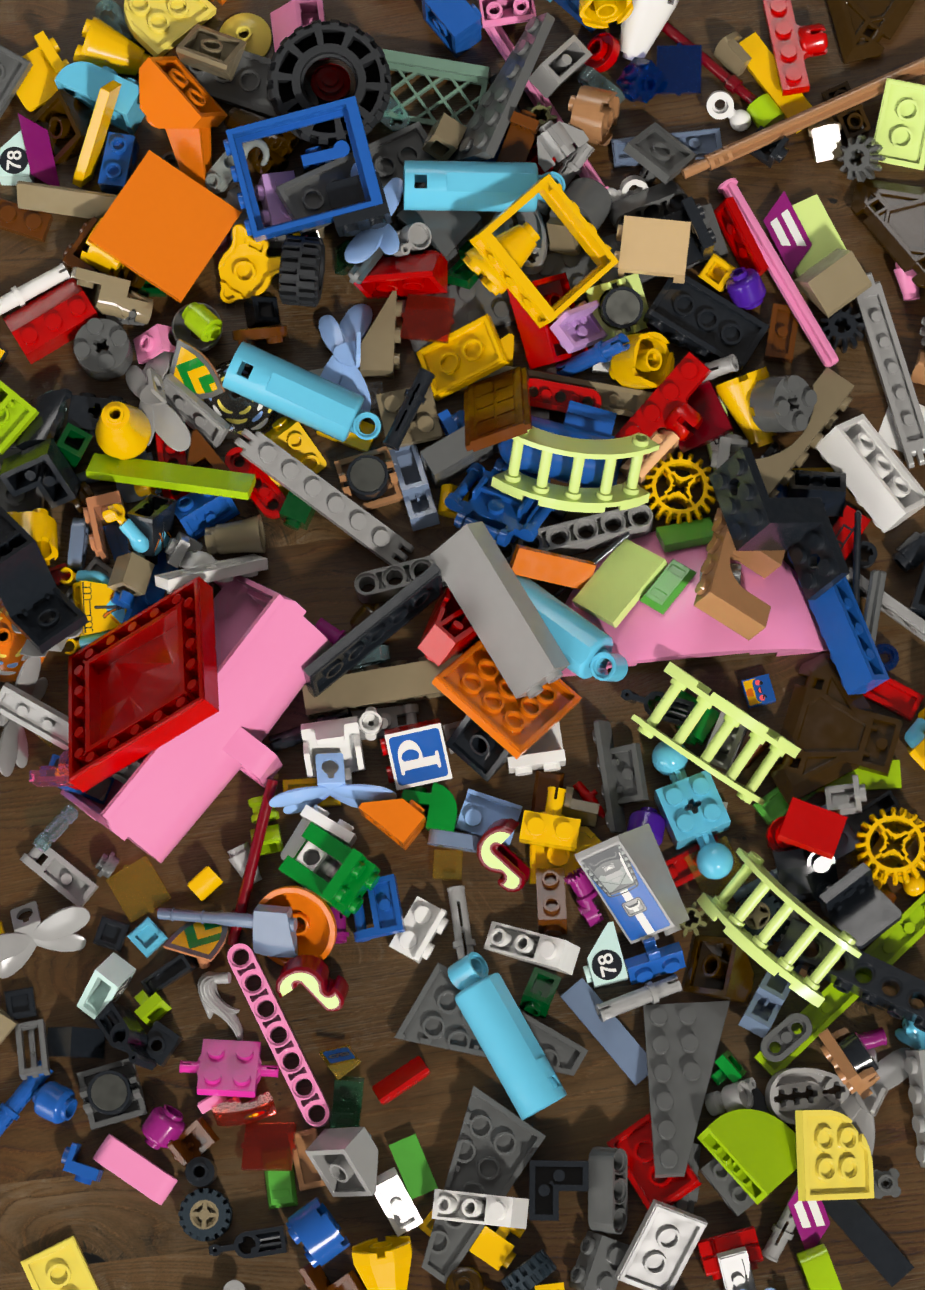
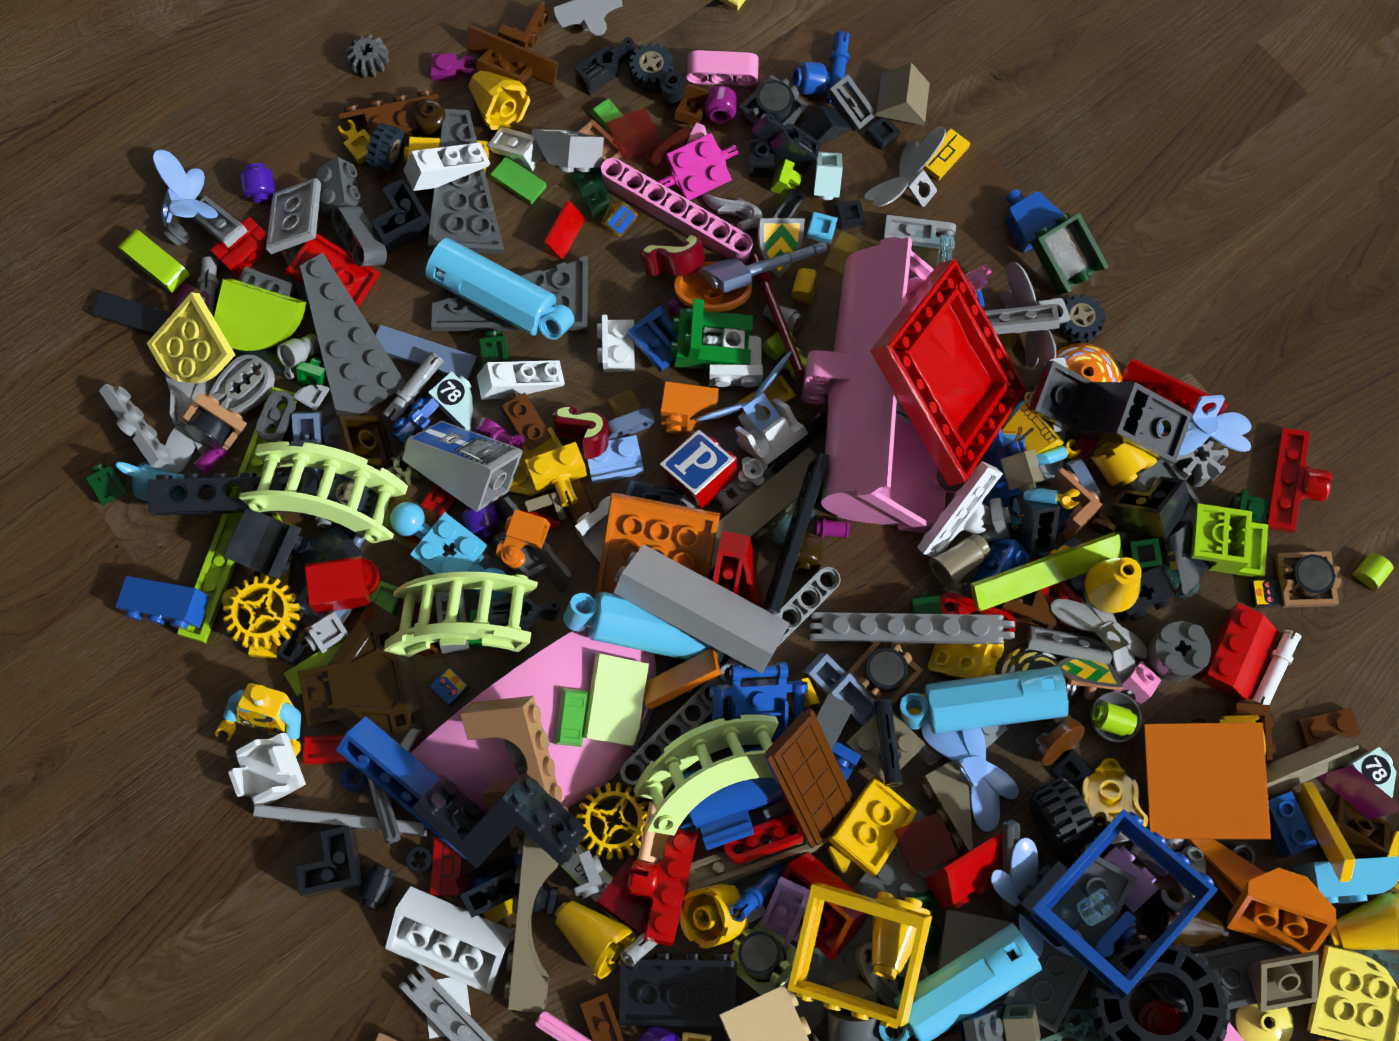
camera: 140 degrees right, 5 degrees down
(83, 1172) = (764, 47): blue bracket -> none
(114, 299) = (1205, 698): dark tan plate -> none
(318, 1233) = (560, 91): blue brick -> none
(328, 179) = (1096, 907): none -> clear light blue beam
(413, 238) = (986, 904): light grey piece -> none
(441, 805) = (654, 440): green brick -> none
(457, 896) = (602, 384): light grey pin -> none
(613, 781) = (521, 531): none -> orange brick
(685, 535) = (584, 780): bright green tile -> none
(740, 1044) = (311, 395): none -> light grey tile
(782, 404) = (561, 944): dark grey brick -> none
(856, 555) = (424, 851): black axle -> none
(892, 1178) = (146, 367): dark grey plate -> none

